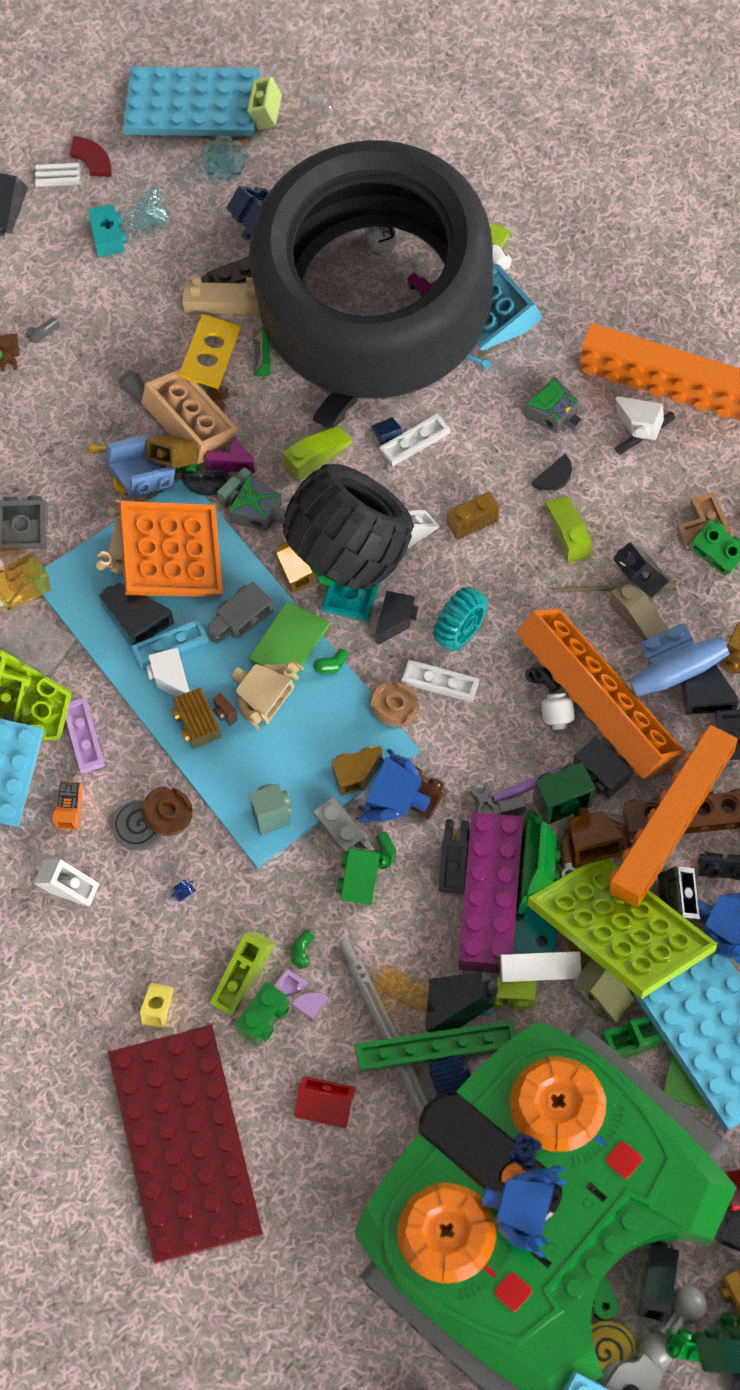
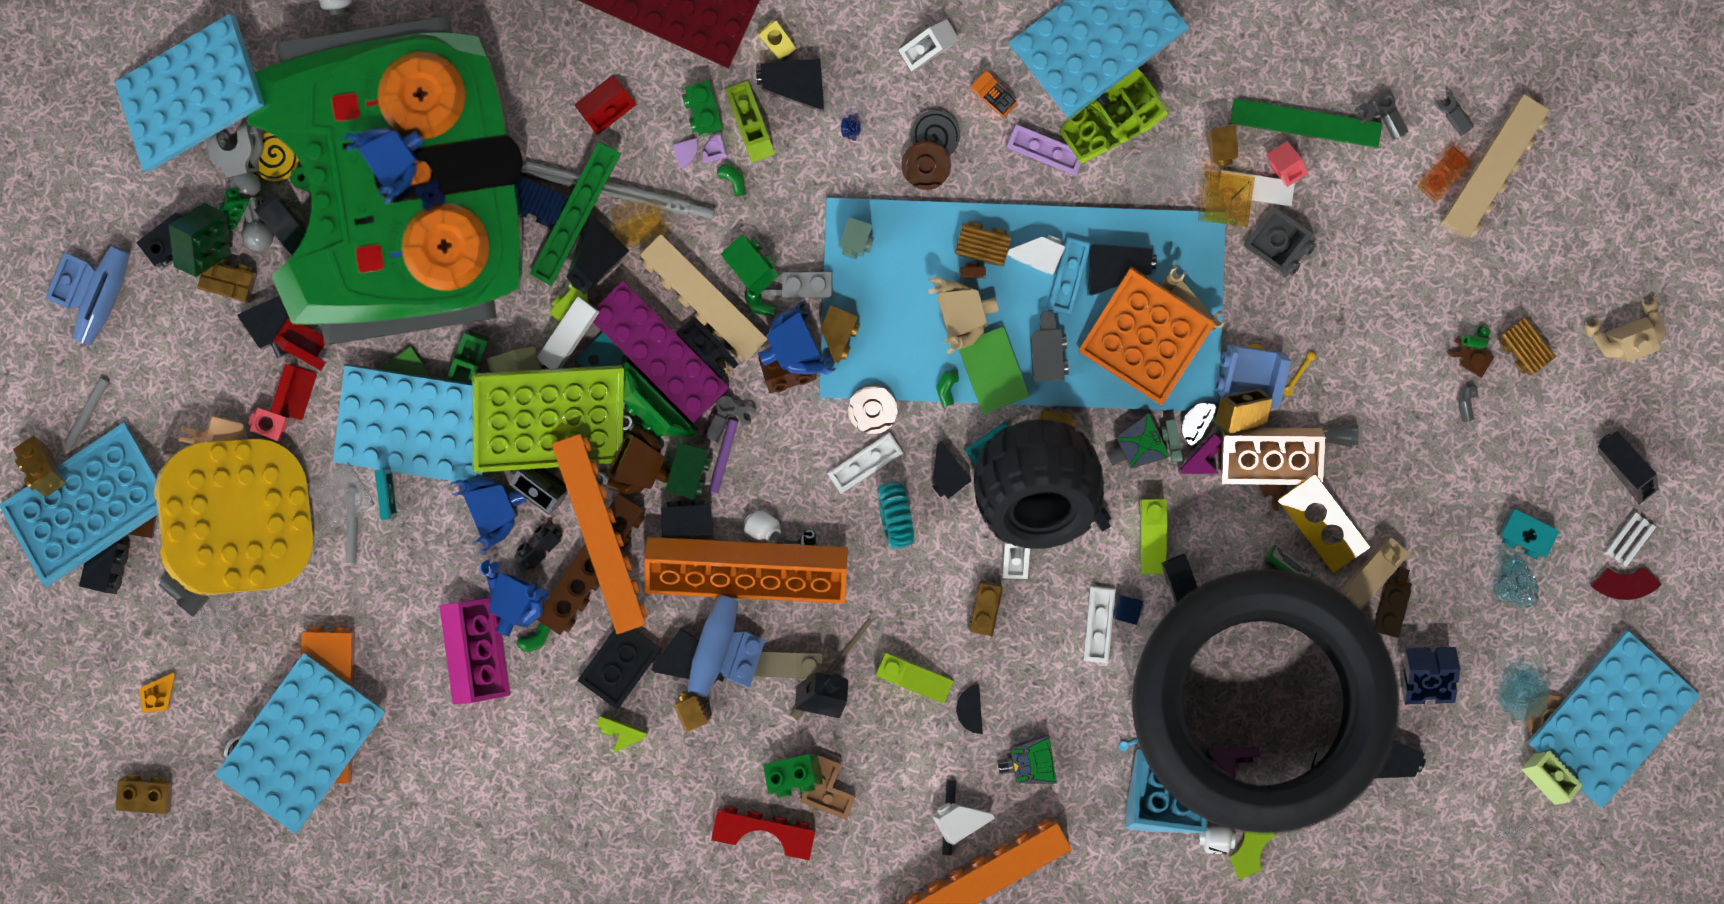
camera: 125 degrees right, 25 degrees up
(179, 961) = (794, 81): none -> black slope
(417, 894) = (698, 292): none -> tan brick

